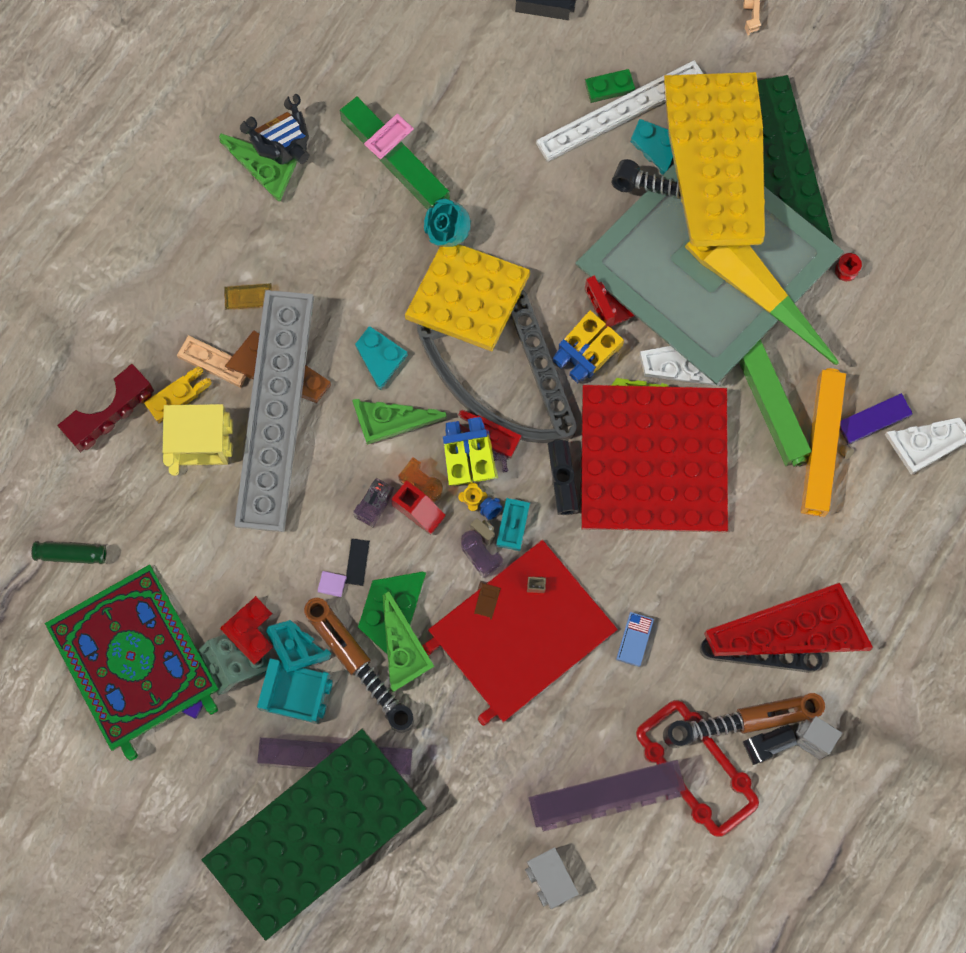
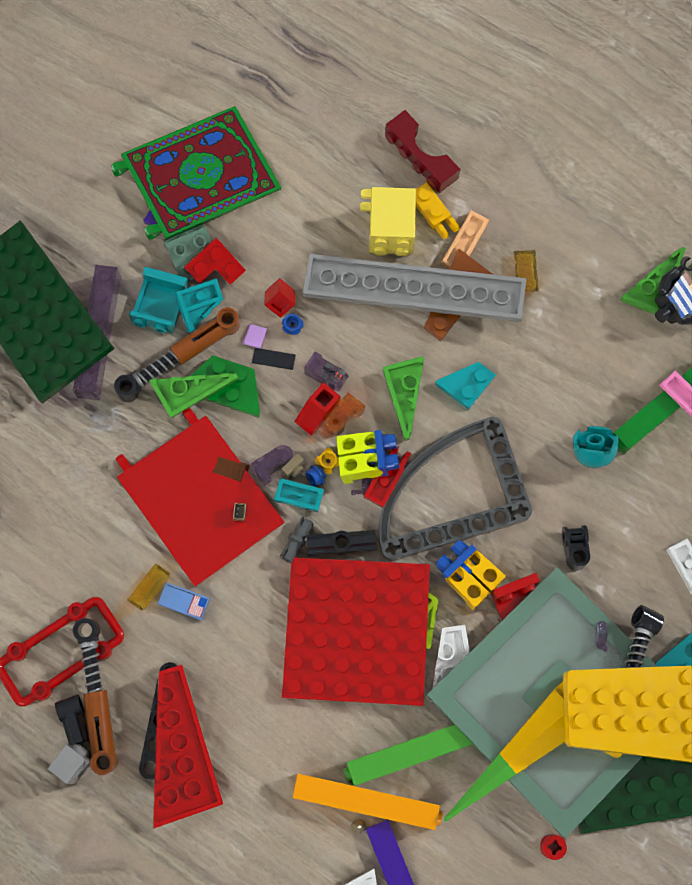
camera: 90 degrees right, 0 degrees up
(68, 552) = (294, 123): dark green axle -> none
(287, 556) = (279, 297): none -> red panel
(317, 536) = (292, 318): none -> blue plate
(468, 295) = (524, 464): yellow plate -> none
(550, 246) = (576, 542): none -> black piece
(561, 524) = (296, 539): none -> dark grey pin
(607, 794) = (40, 564): clear purple brick -> none
(622, 676) = (149, 587): none -> clear yellow tile
(645, 218) = (602, 636): none -> clear purple piece

